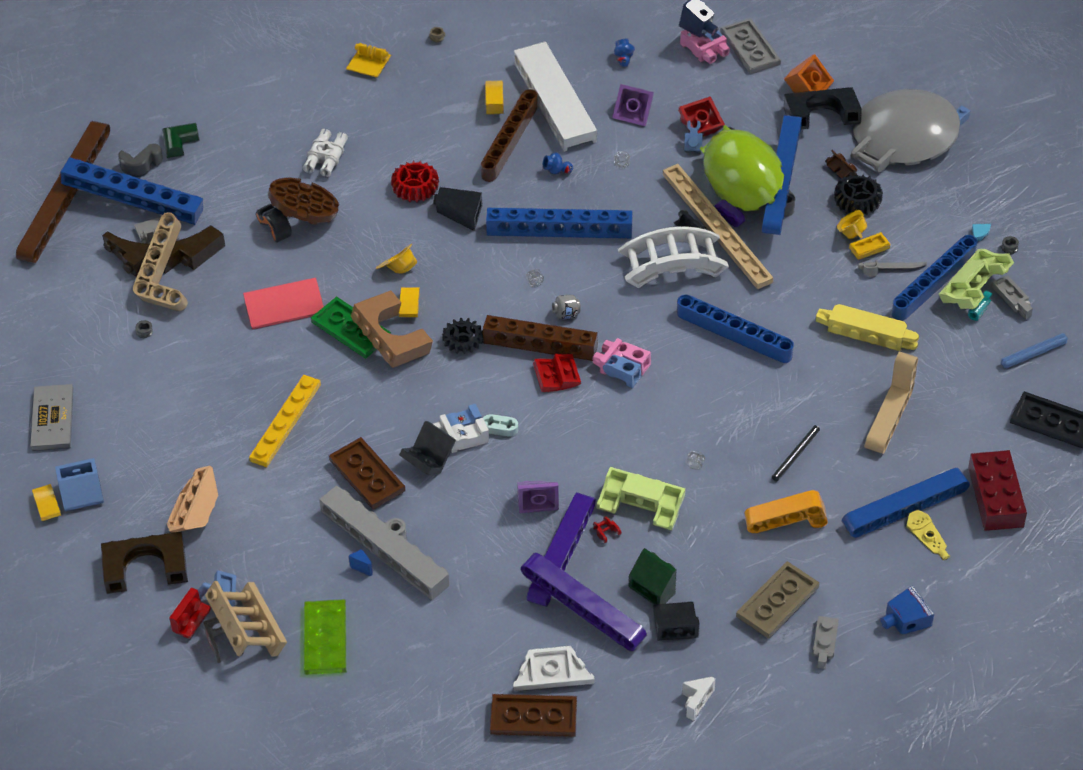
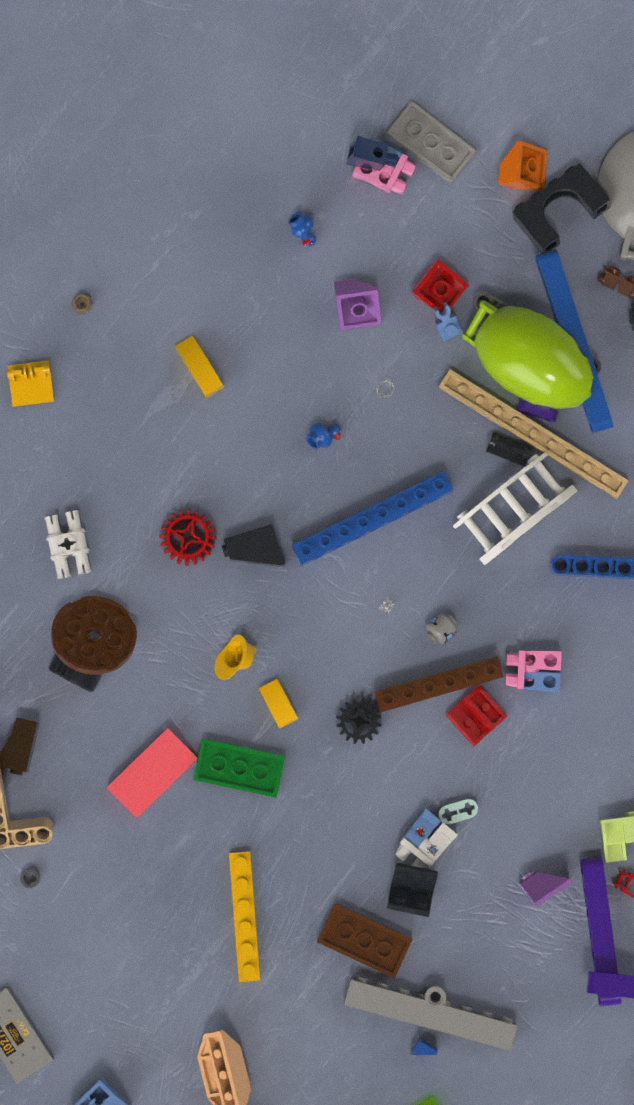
camera: 25 degrees left, 35 degrees up
(394, 348) = (257, 758): medium nougat arch -> none
(509, 135) = (249, 407): reddish brown beam -> none
(555, 95) = (264, 333): white tile -> none

